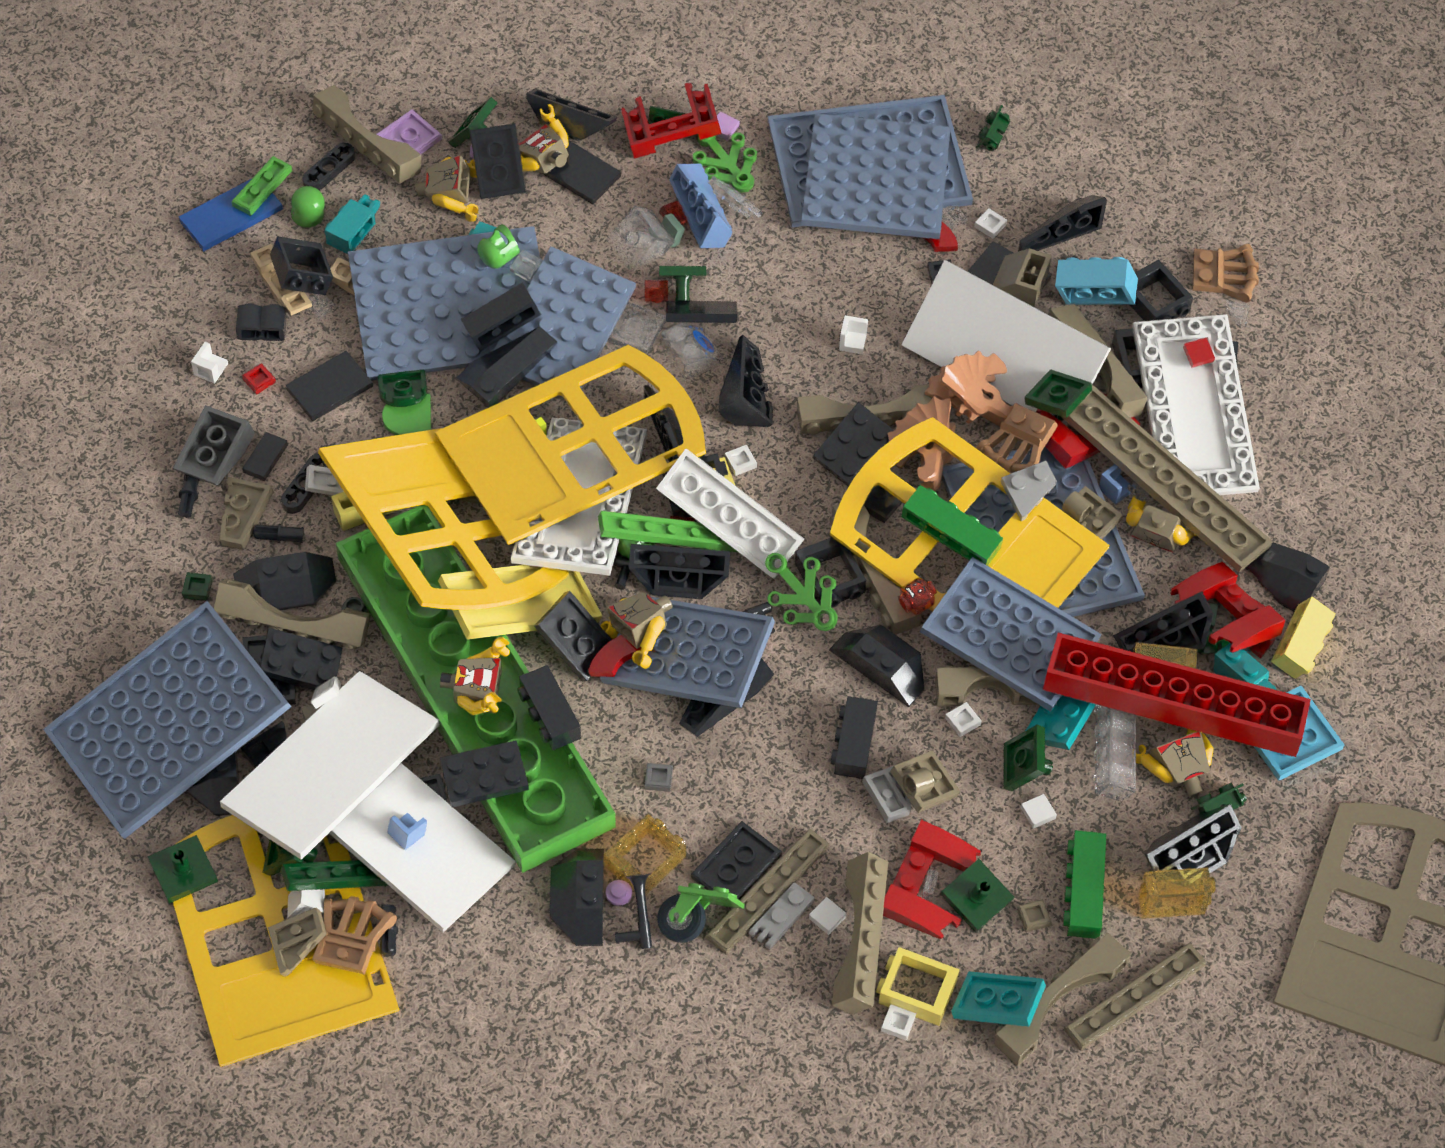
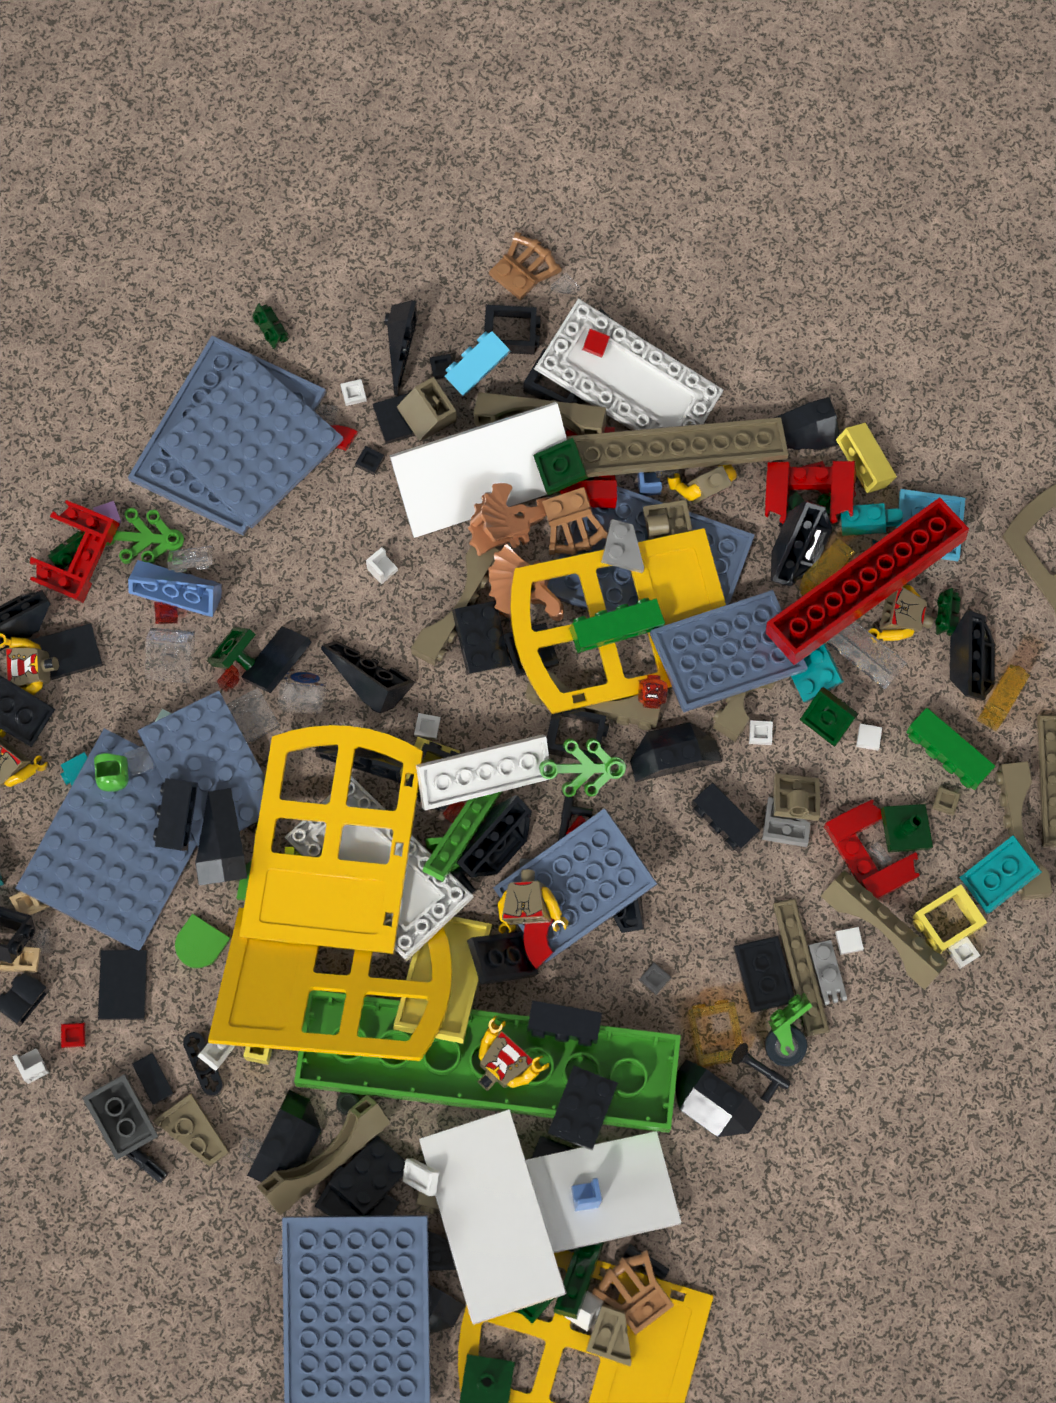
camera: 55 degrees left, 15 degrees up
(197, 586) = (238, 1211): dark green plate -> none
(279, 533) = (236, 1115): black axle -> none
(402, 388) = (171, 931): dark green tile -> none
(618, 892) = (730, 1073): lavender plate -> none
(674, 228) = (180, 623): sand green tile -> none

